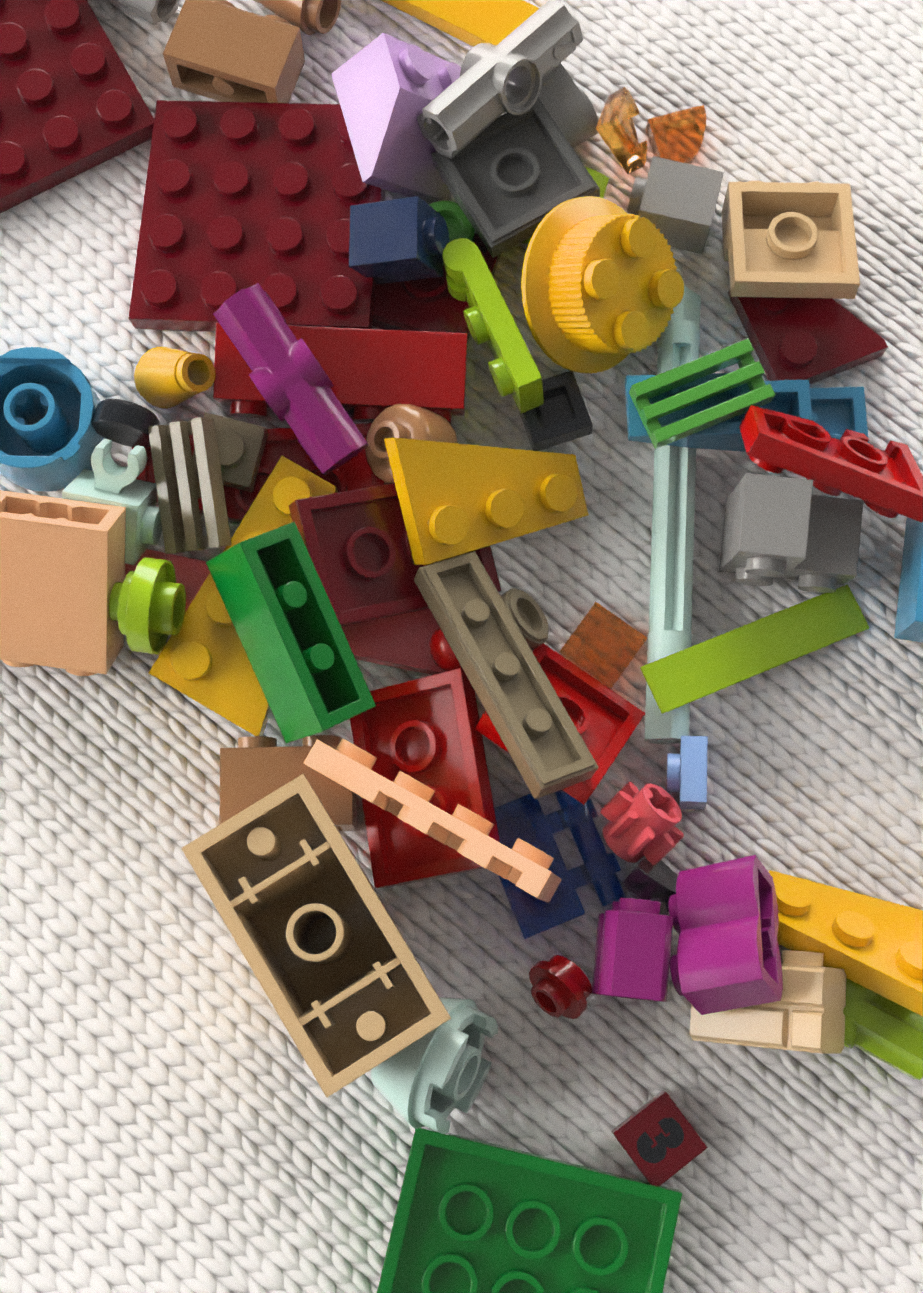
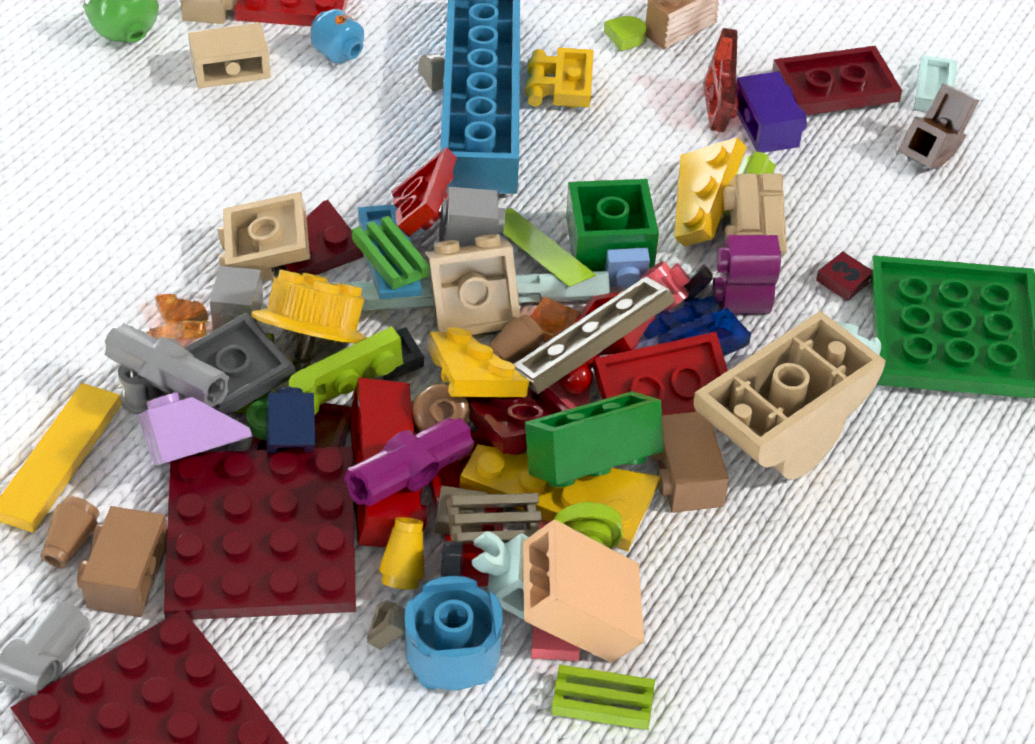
camera: 100 degrees left, 30 degrees down
(94, 353) = (386, 625): none -> dark tan tile
(461, 831) = (703, 336): light nougat wing -> none
(555, 579) = (517, 339): none -> medium nougat cone
(560, 987) = (773, 318): red plate -> none
(651, 520) = (473, 284): none -> tan plate
(726, 936) = (732, 212): magenta brick -> none
(780, 759) = (610, 217): none -> green brick

